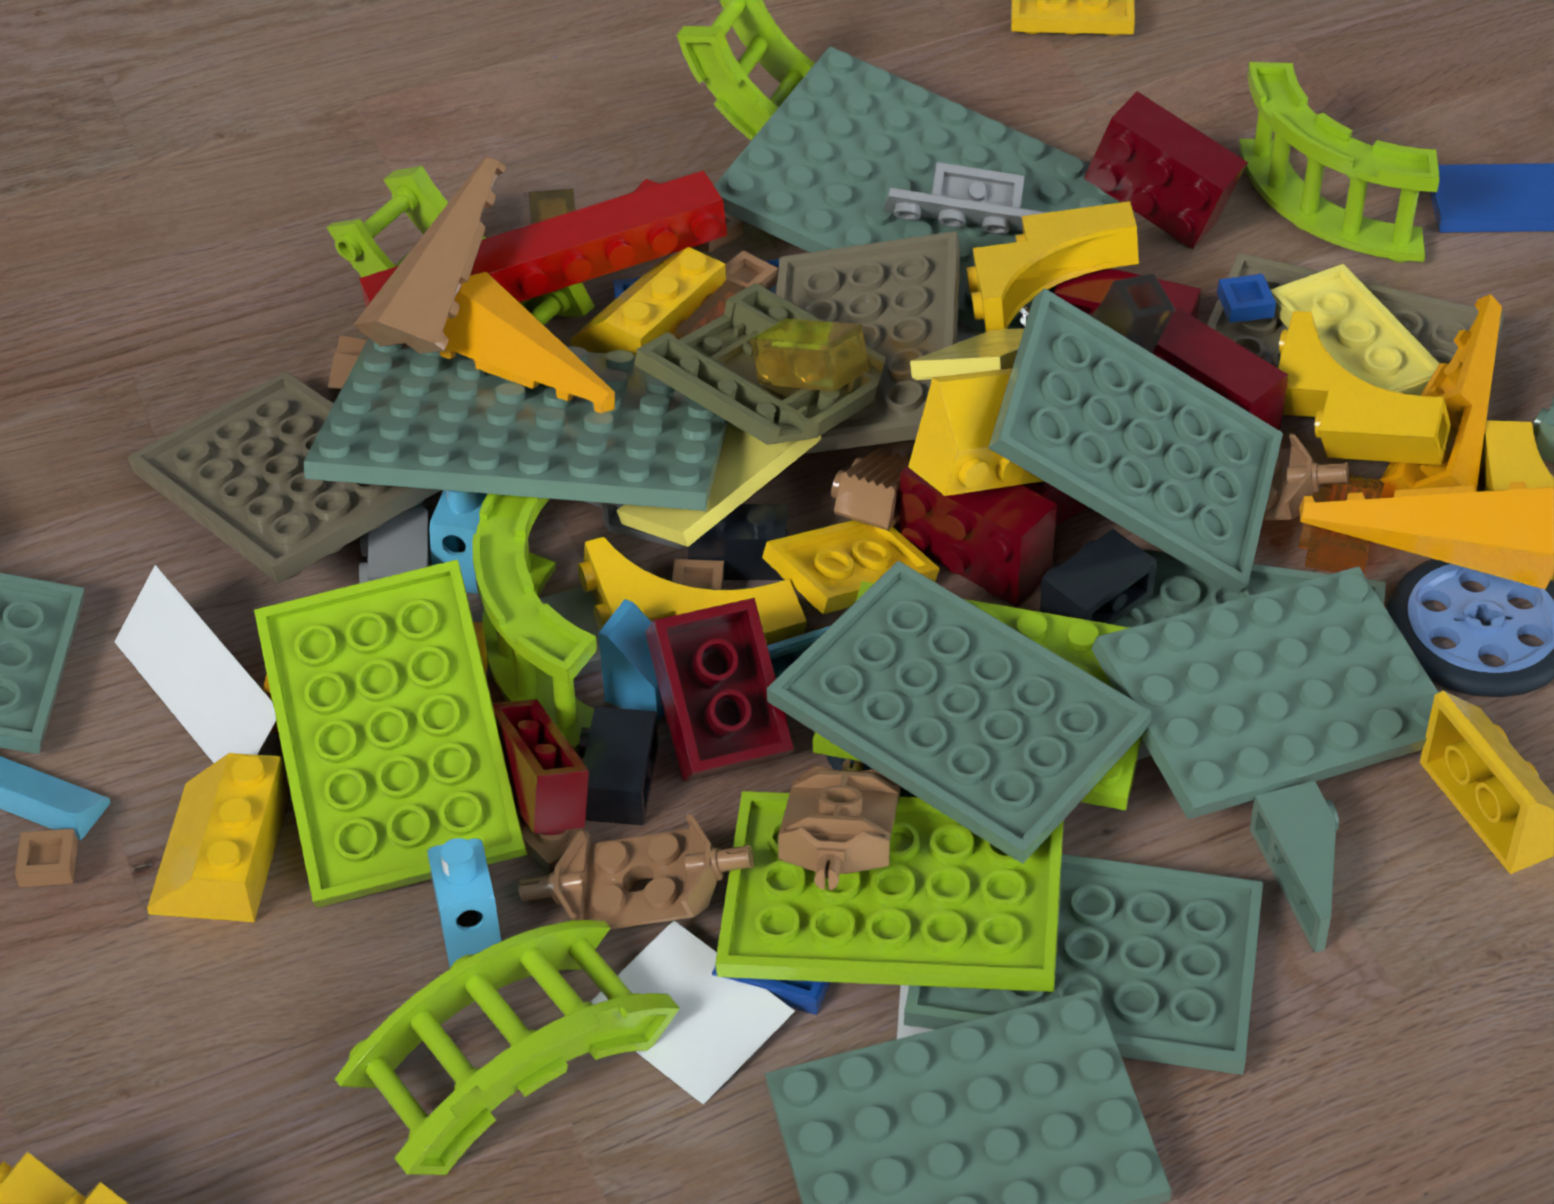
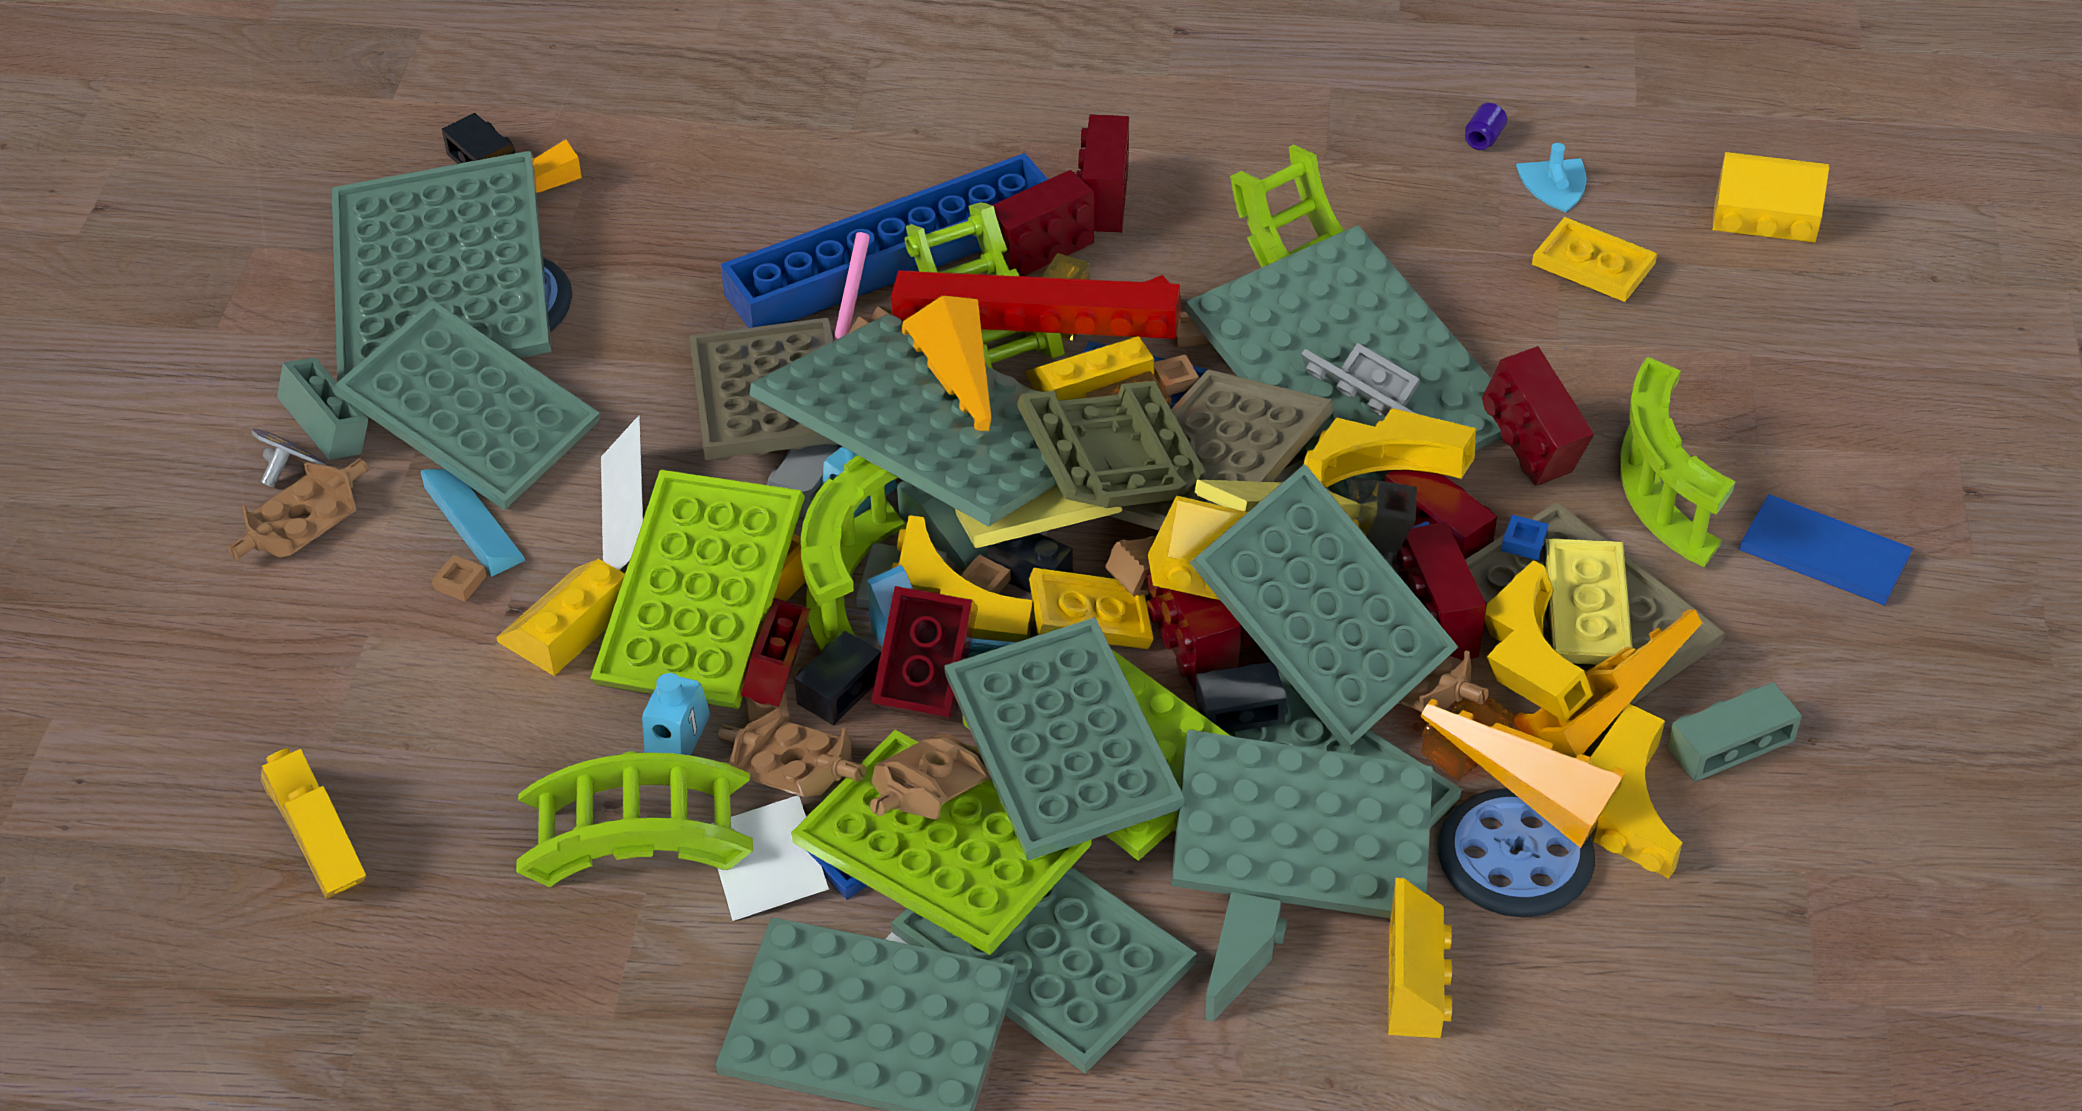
camera: 30 degrees right, 0 degrees up
(283, 271) = (812, 268): none -> blue brick
(301, 324) = (852, 285): none -> bright pink piece
(423, 287) = (925, 292): medium nougat wedge -> none
(473, 134) = (1046, 221): none -> dark red brick
(494, 95) = (1105, 168): none -> dark red brick
(567, 524) = (941, 524): none -> sand green slope
(810, 354) = (1138, 446): clear yellow brick -> none

